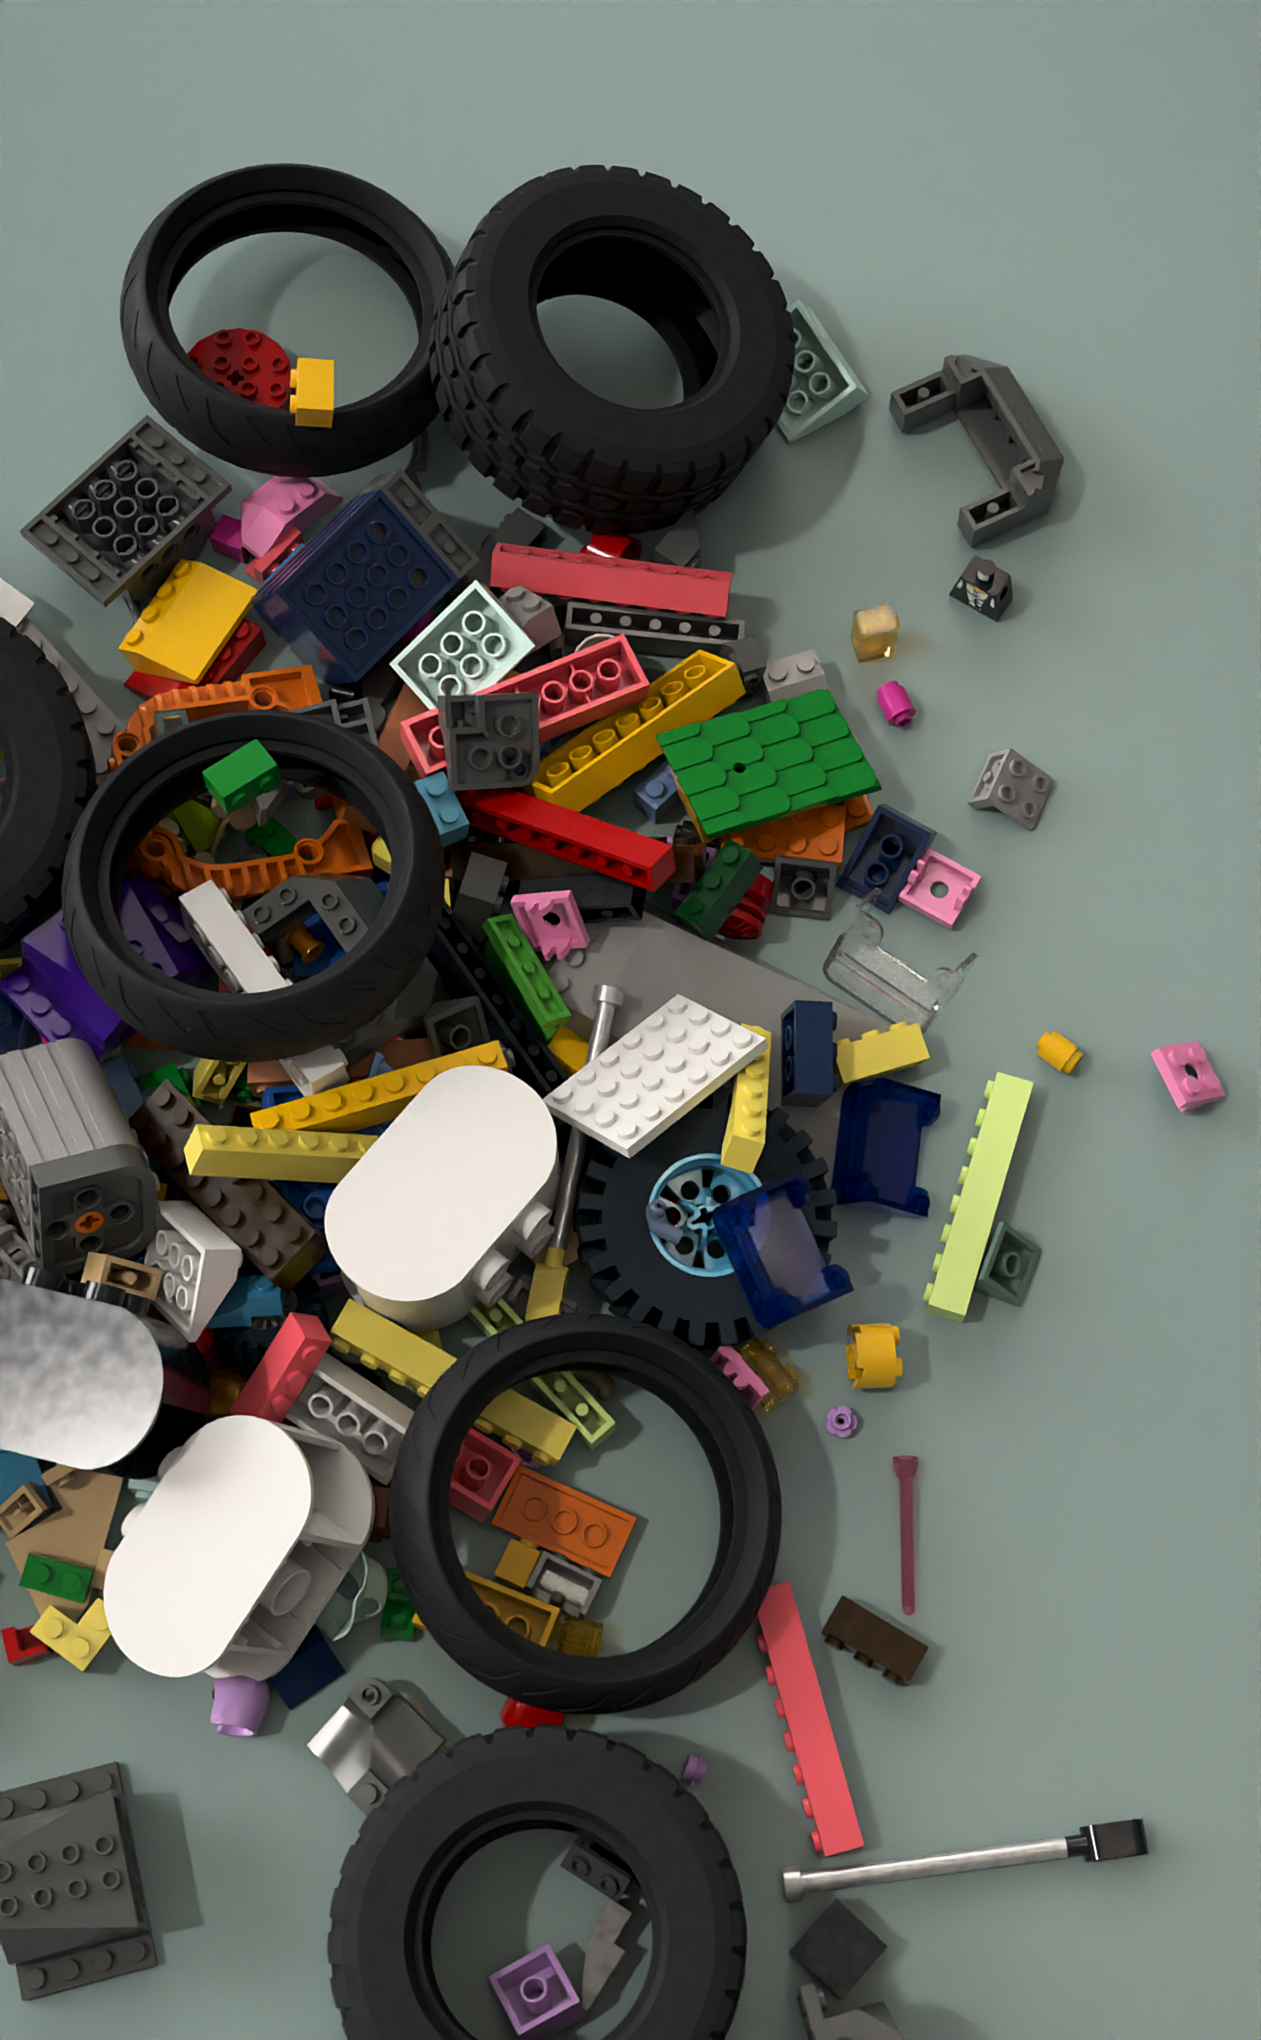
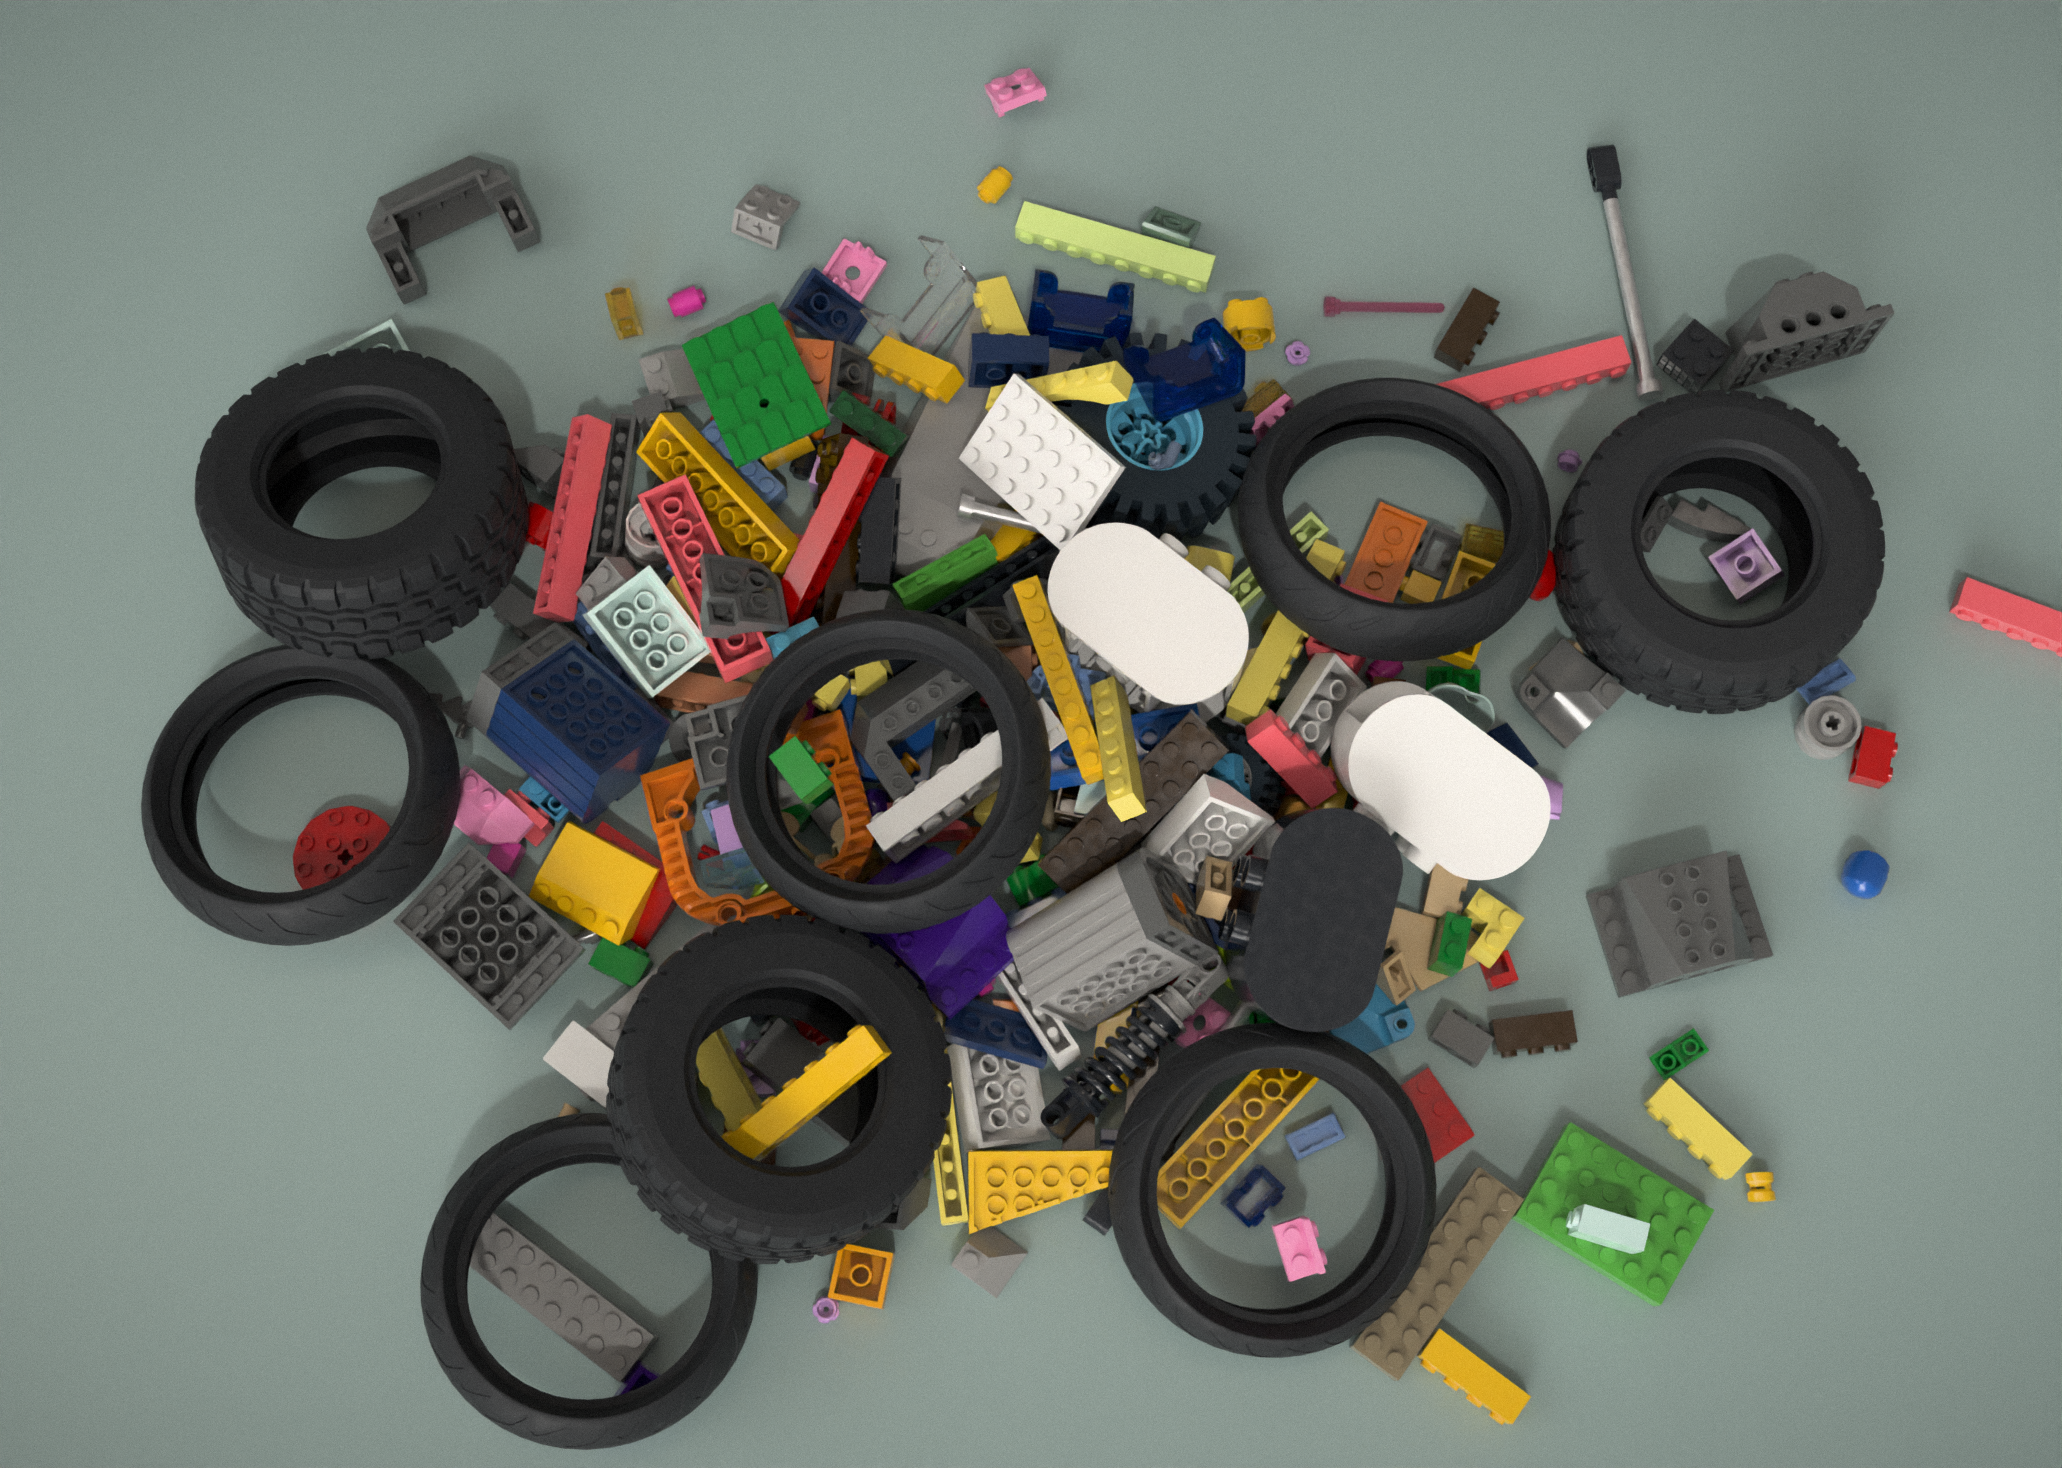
camera: 90 degrees left, 5 degrees up
(101, 661) = (621, 962): none -> green brick
(314, 392) = (403, 746): yellow brick -> none
(345, 692) = (664, 753): black hinge -> none
(542, 934) = (910, 540): bright pink piece -> none
(799, 954) = (916, 369): none -> yellow brick
(984, 588) = (584, 228): black torso -> none

